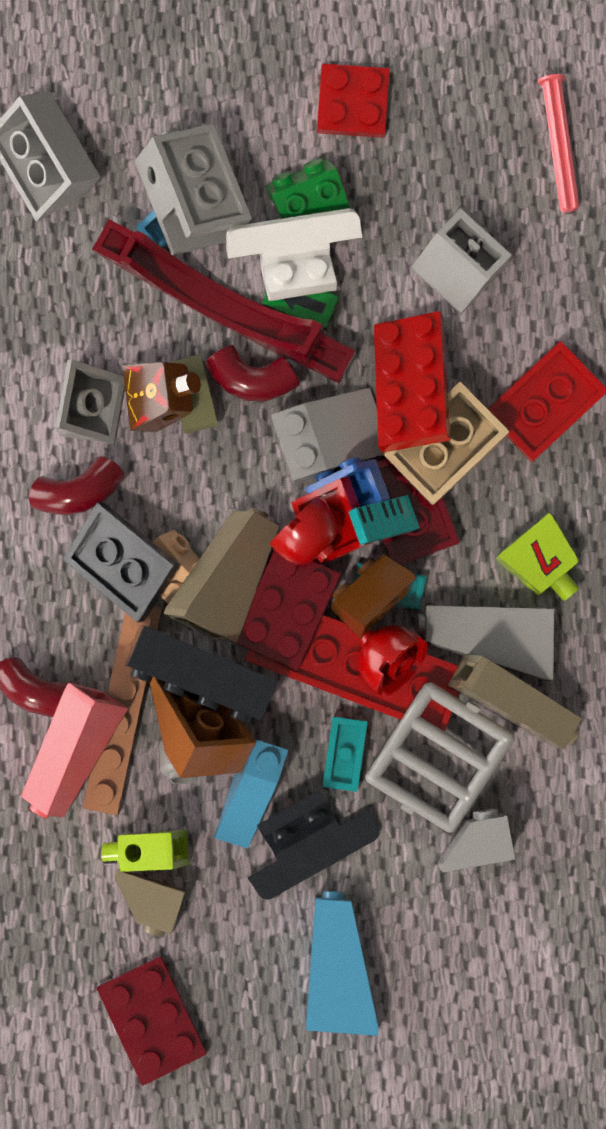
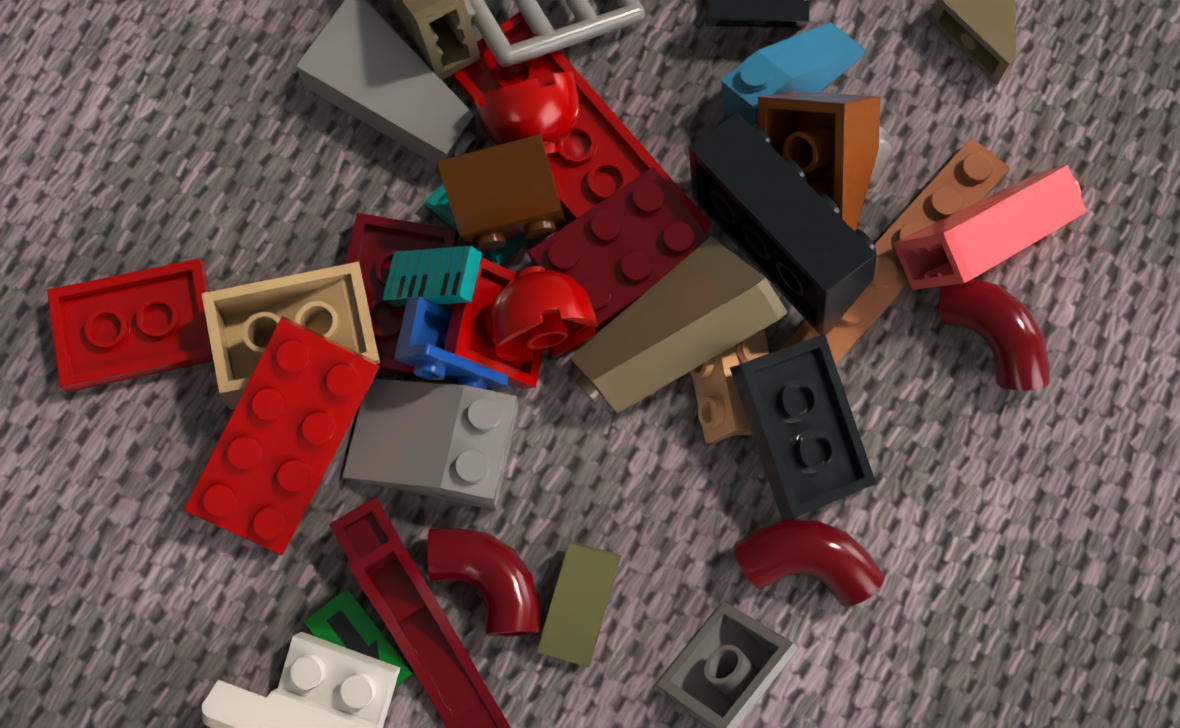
camera: 155 degrees left, 10 degrees down
(158, 394) = (625, 624): reddish brown torso -> none
(158, 851) = (956, 67): lime torso -> none
(344, 754) = (652, 56): teal plate -> none
(461, 261) = (109, 565): light grey slope -> none
(542, 559) = (269, 141): lime torso -> none

